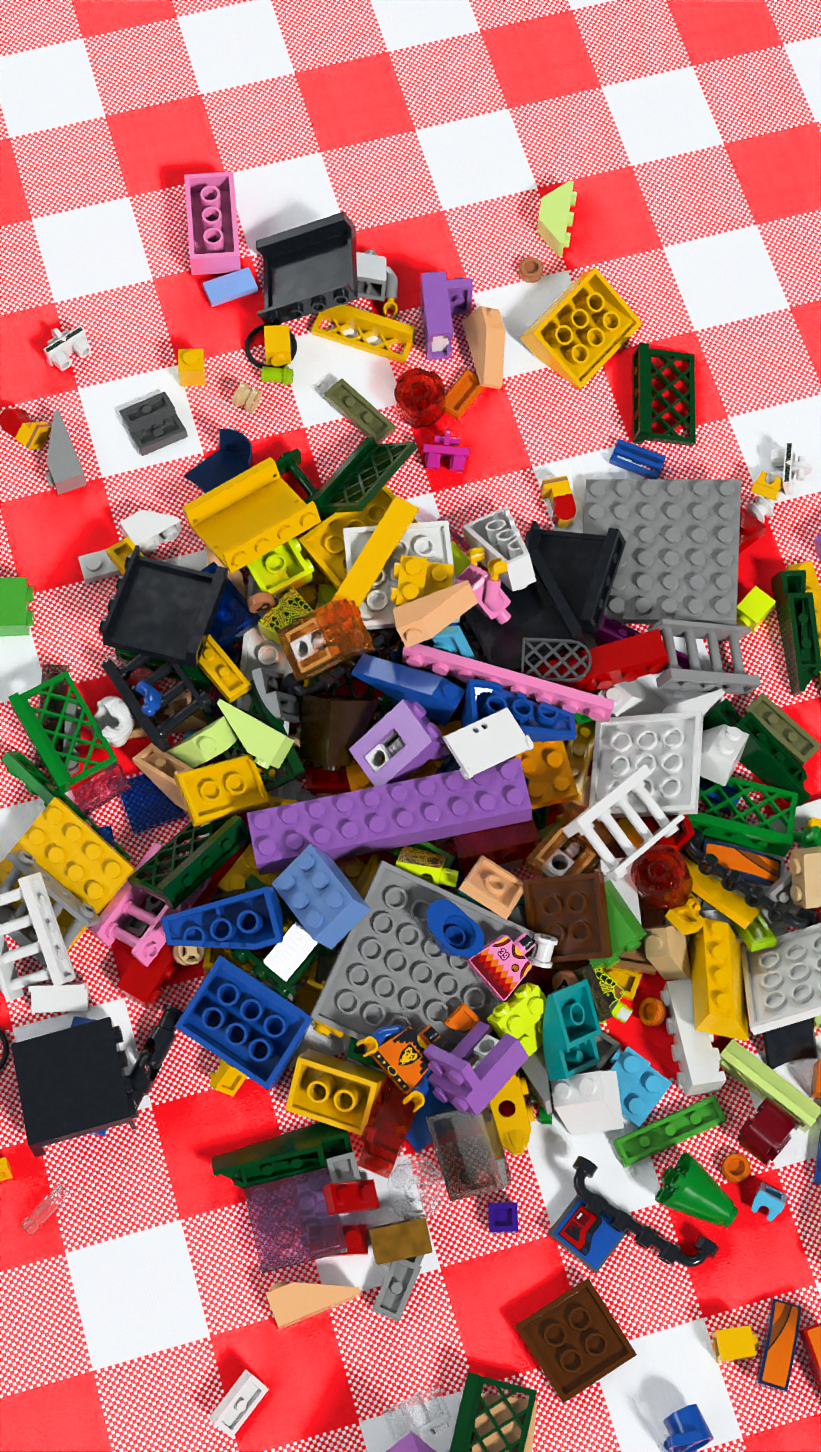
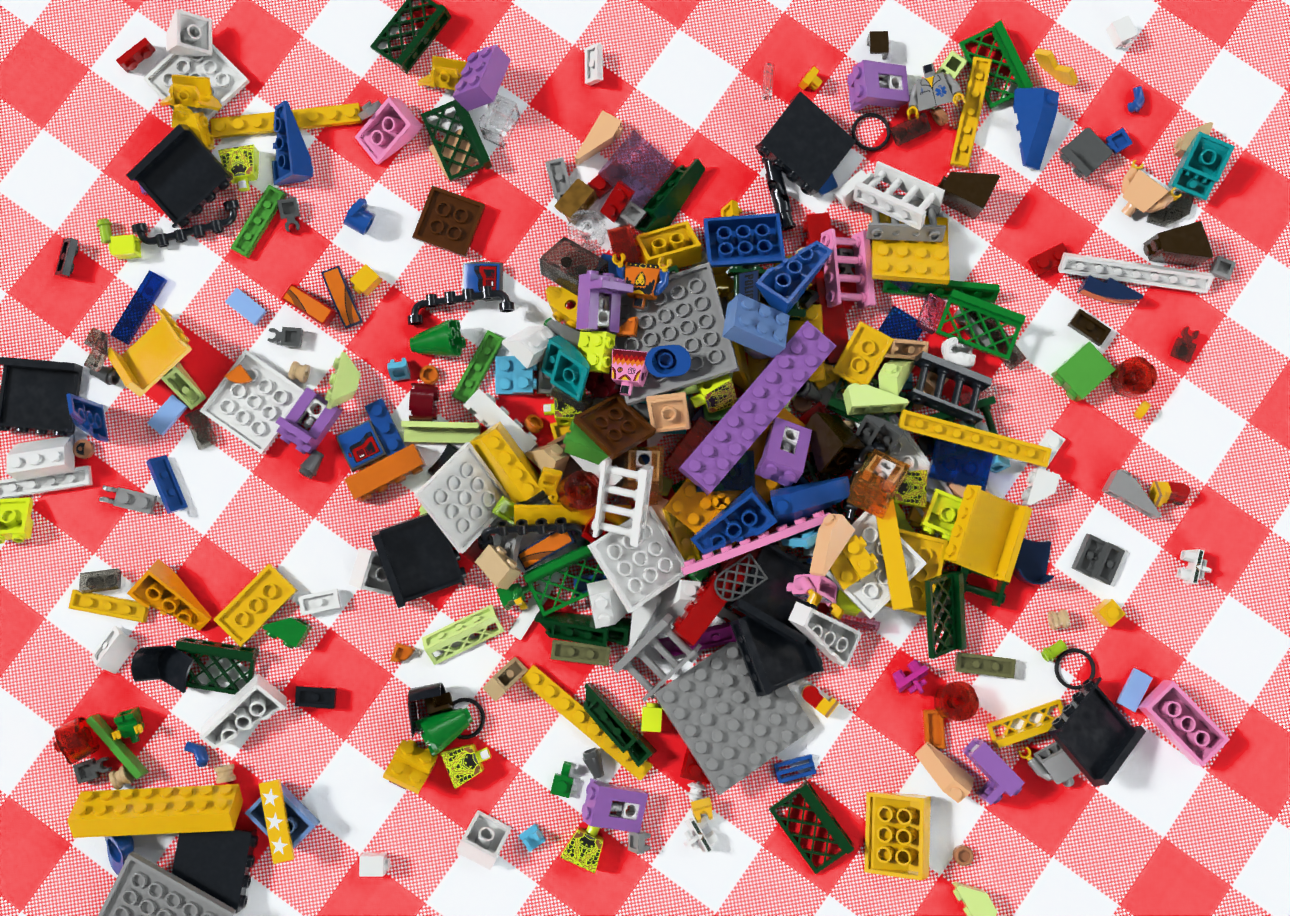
camera: 145 degrees right, 15 degrees up
(152, 697) = (946, 376): blue arm -> none
(163, 609) = (986, 432): black panel -> none
(192, 869) = (838, 304): dark green fence -> none
(260, 602) = (935, 482): nougat tile -> none
(277, 345) = (1070, 668): yellow brick -> none
(483, 748) = (735, 481): white door -> none
(502, 1218) = (531, 253): dark purple plate -> none
(543, 950) = (615, 400): white bush -> none
(563, 979) = (590, 393): nougat tile -> none

